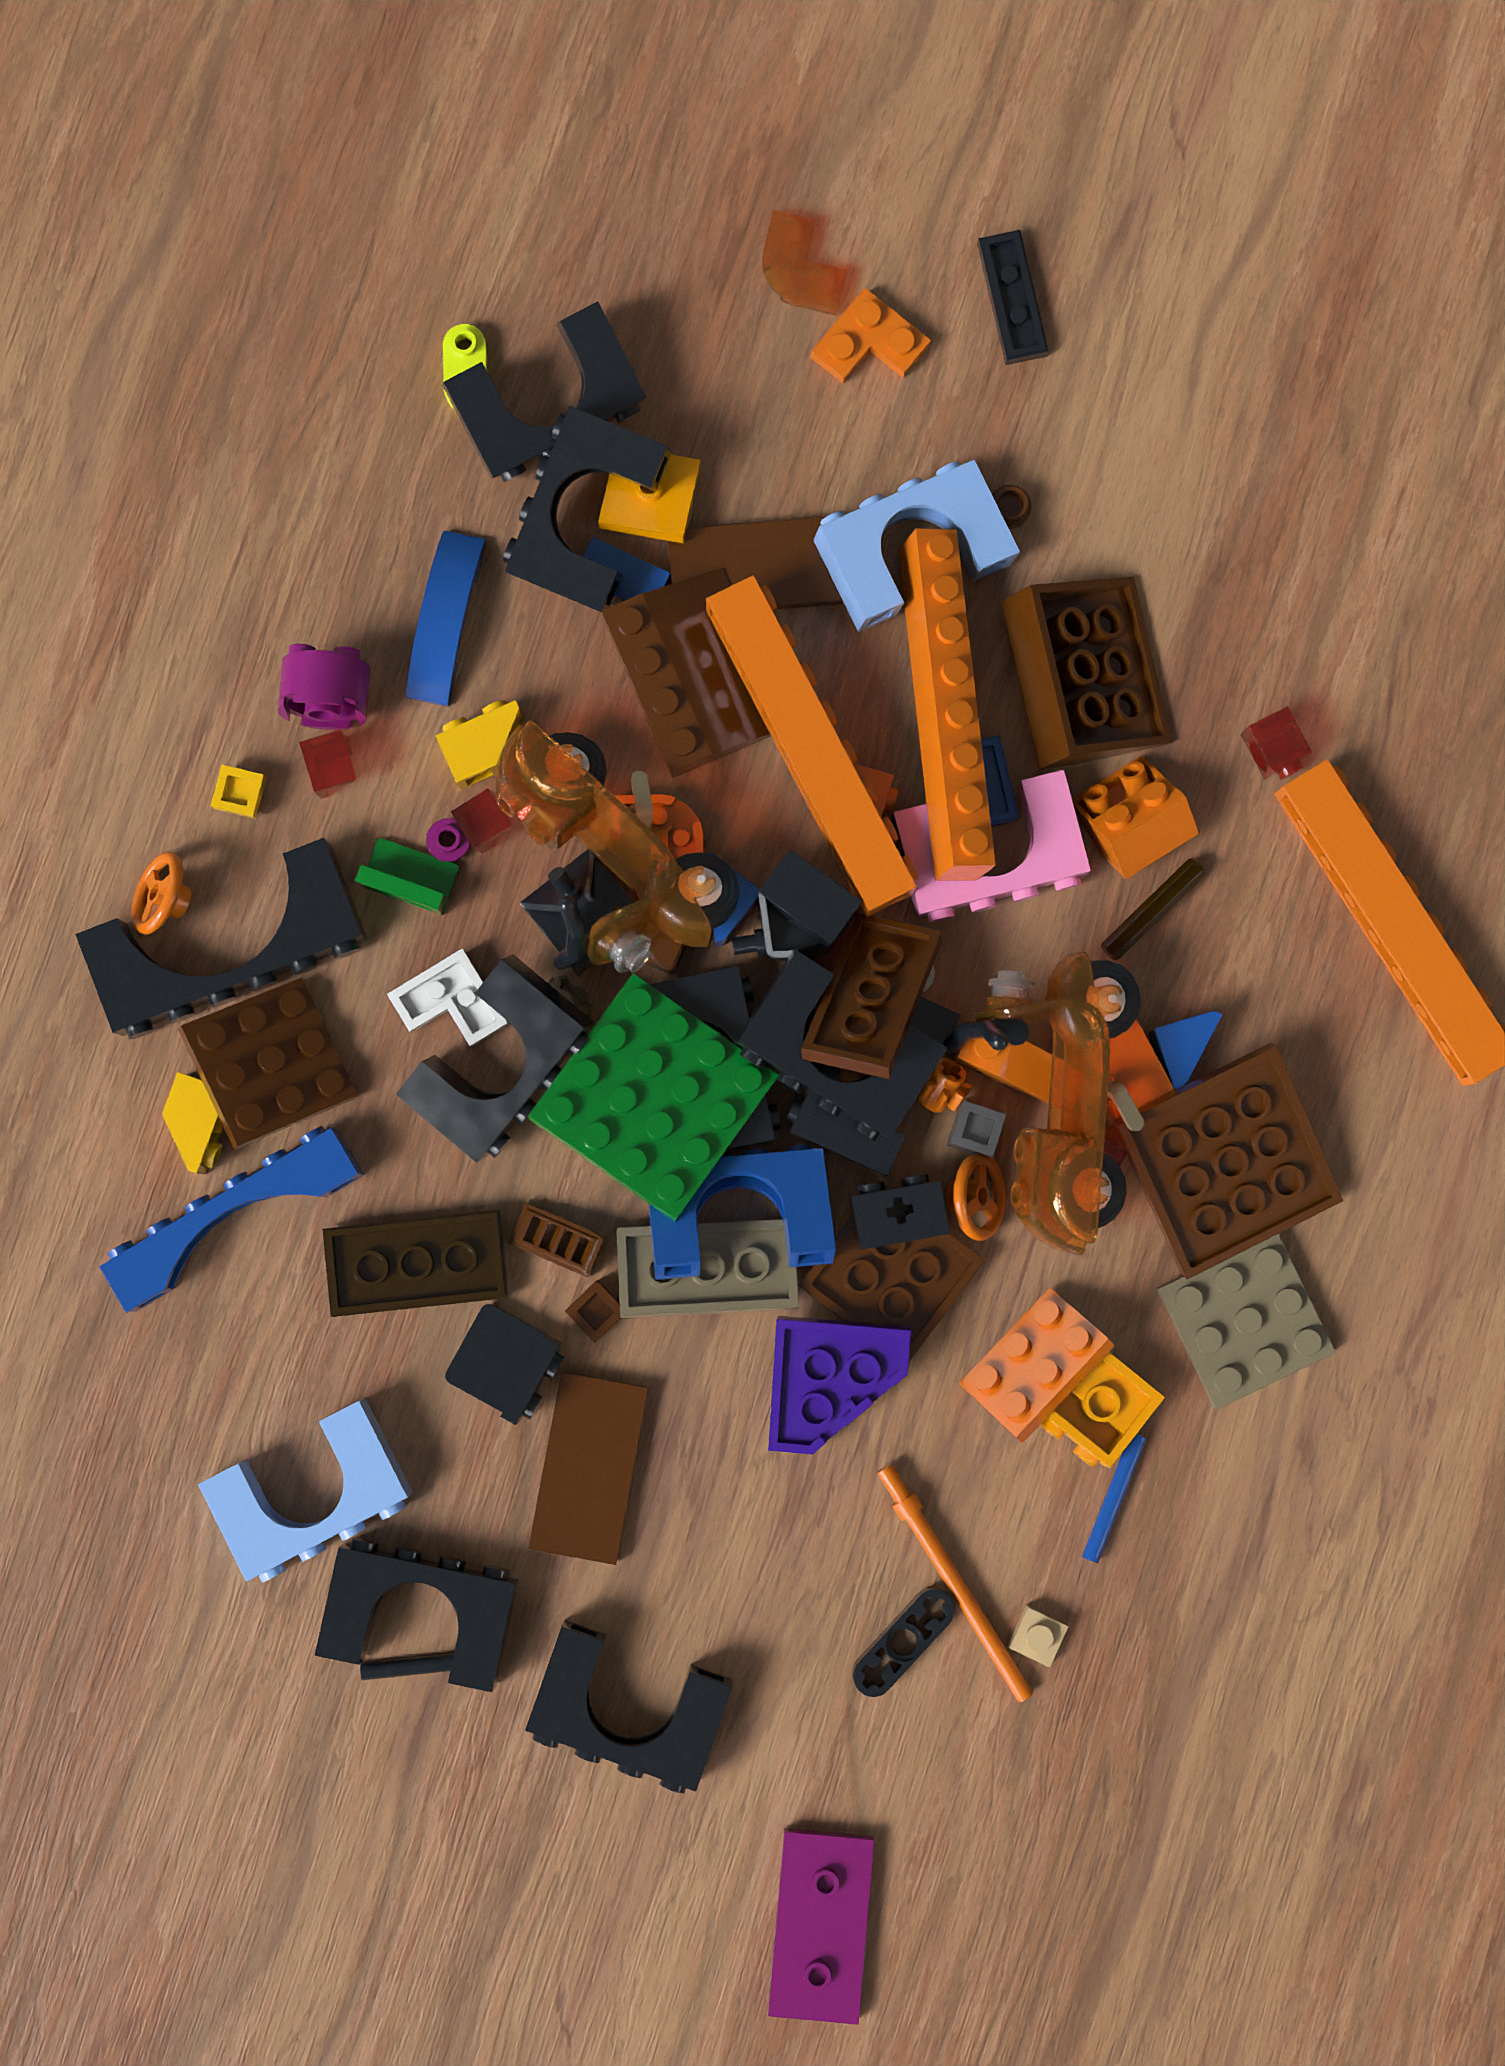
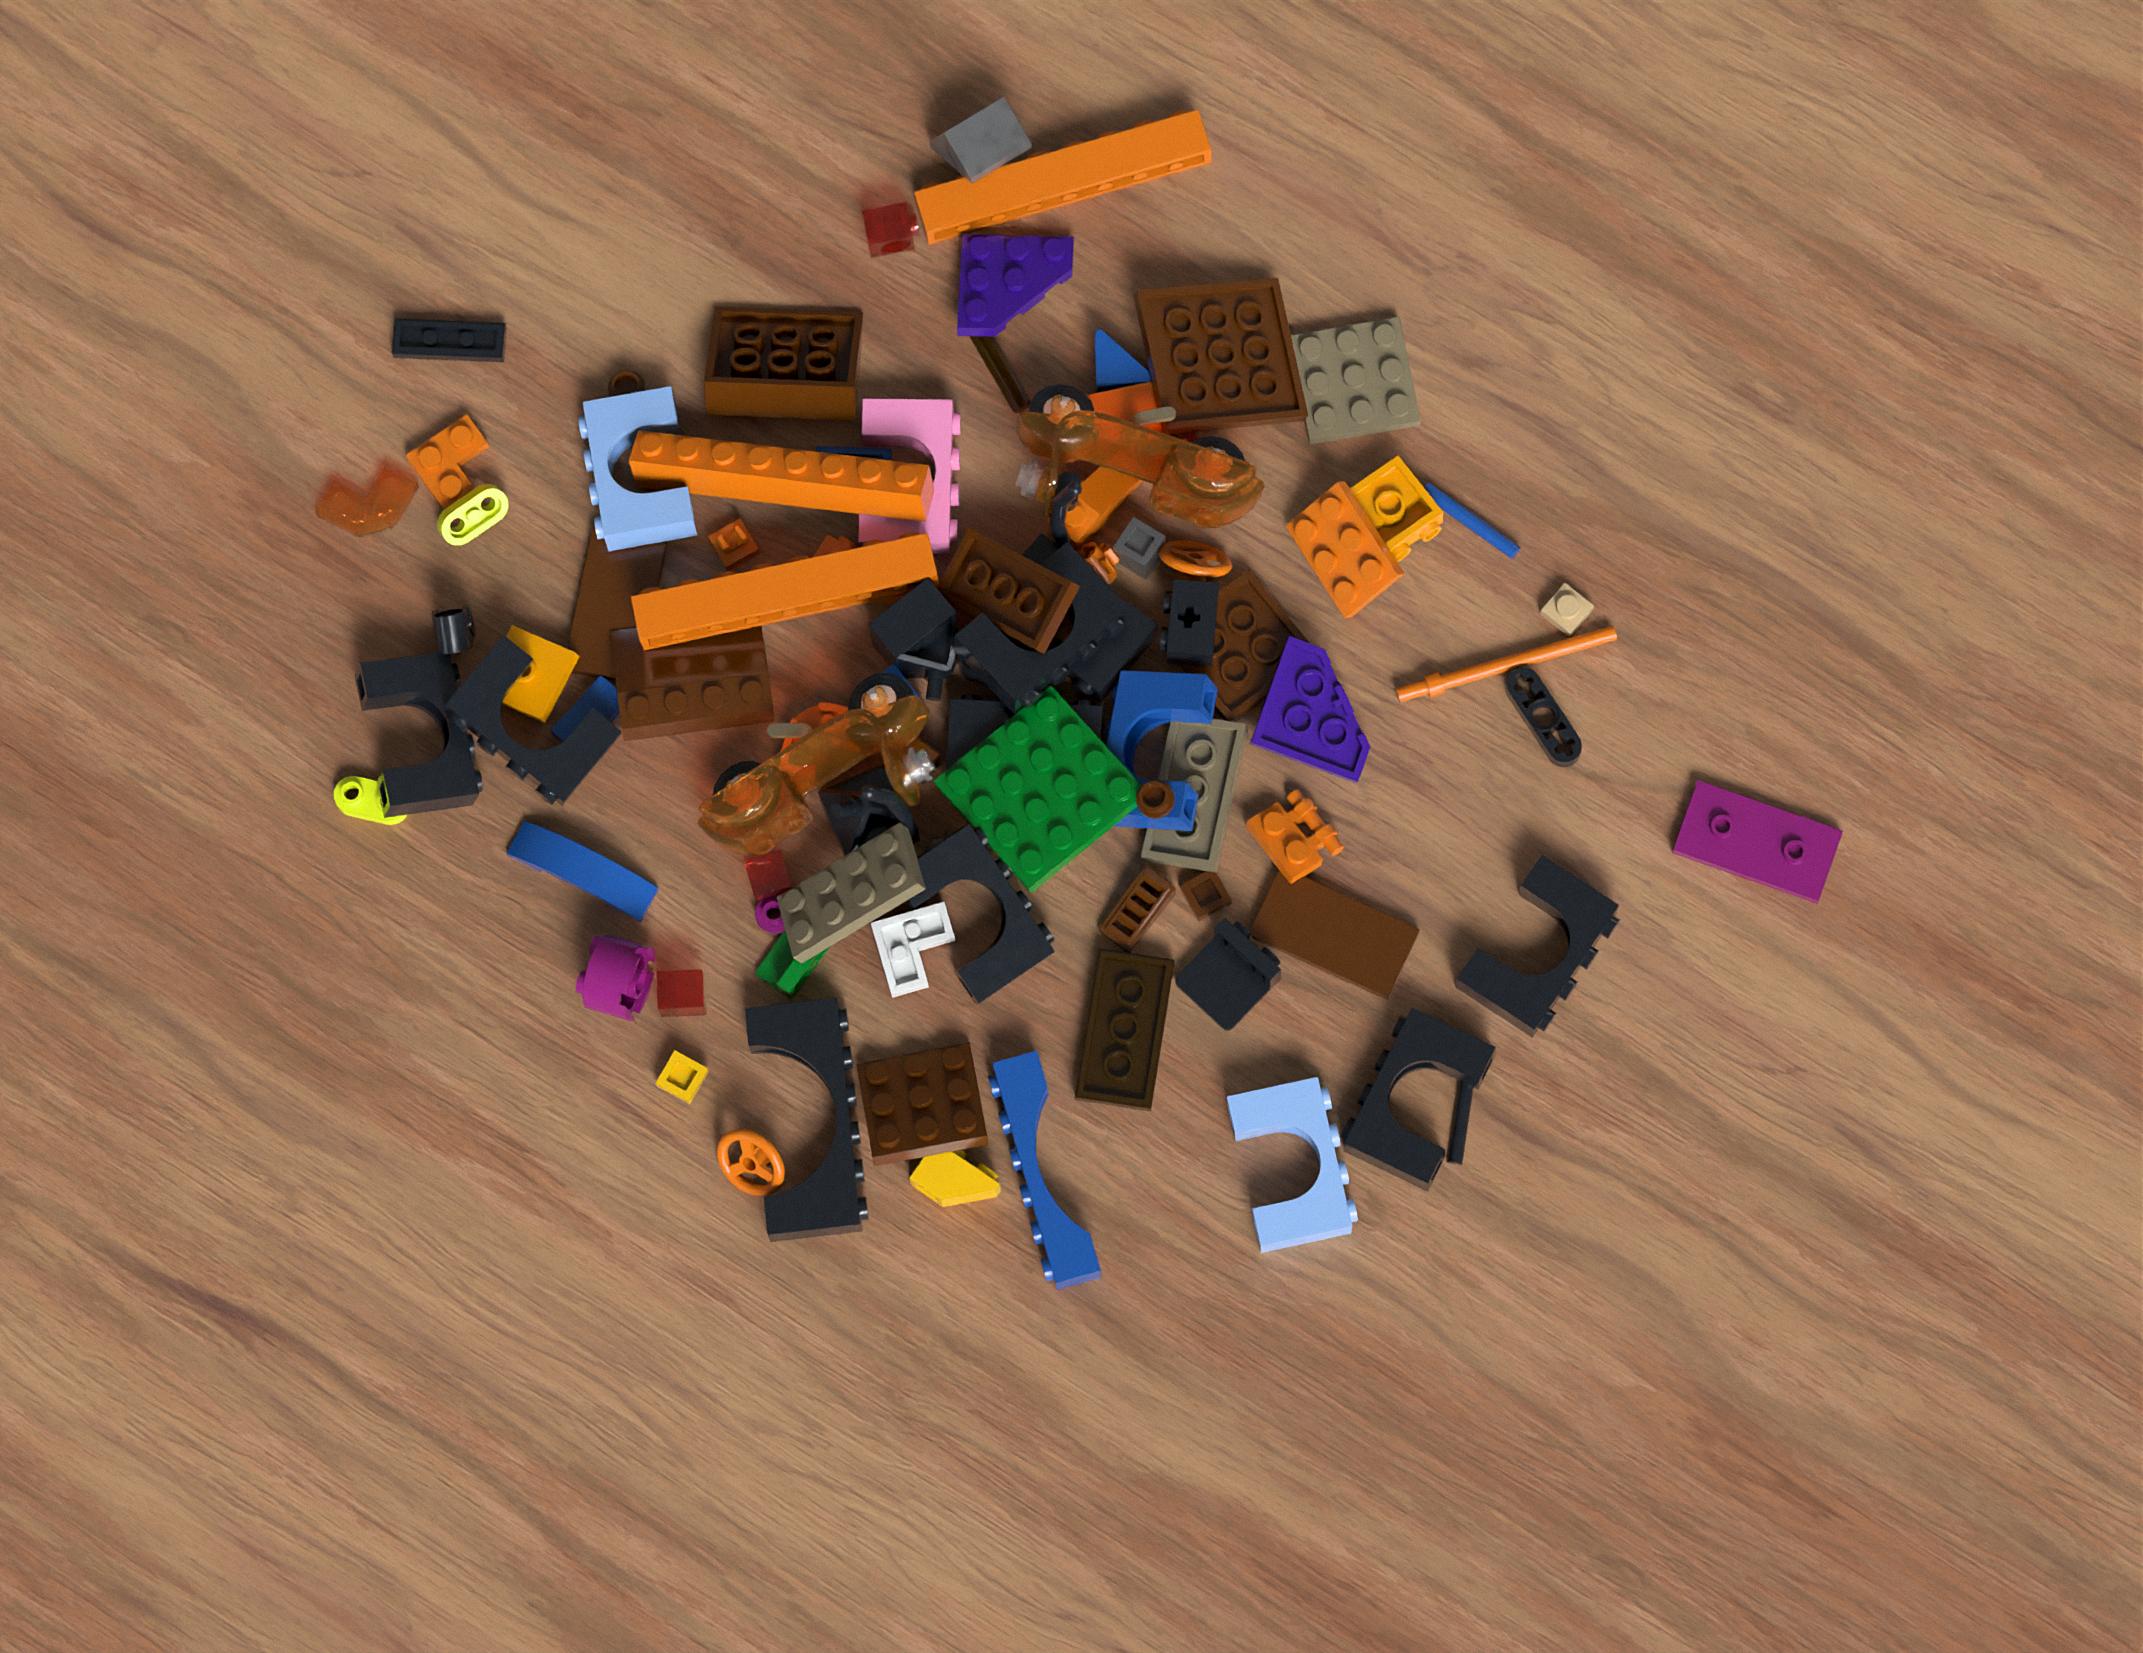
camera: 65 degrees left, 10 degrees down
(474, 918) = (851, 892): none -> dark tan plate
(475, 745) = (703, 866): yellow slope -> none
(668, 1232) = (1155, 799): none -> reddish brown plate
(673, 396) = (454, 629): none -> black piece
(677, 1385) = (1286, 843): none -> orange plate
(816, 382) = (473, 516): none -> neon yellow plate
(861, 676) = (733, 544): none -> orange tile
(1135, 816) = (917, 355): orange slope -> none
(1256, 893) = (1007, 278): none -> dark purple plate
(1410, 820) = (983, 141): none -> flat silver slope

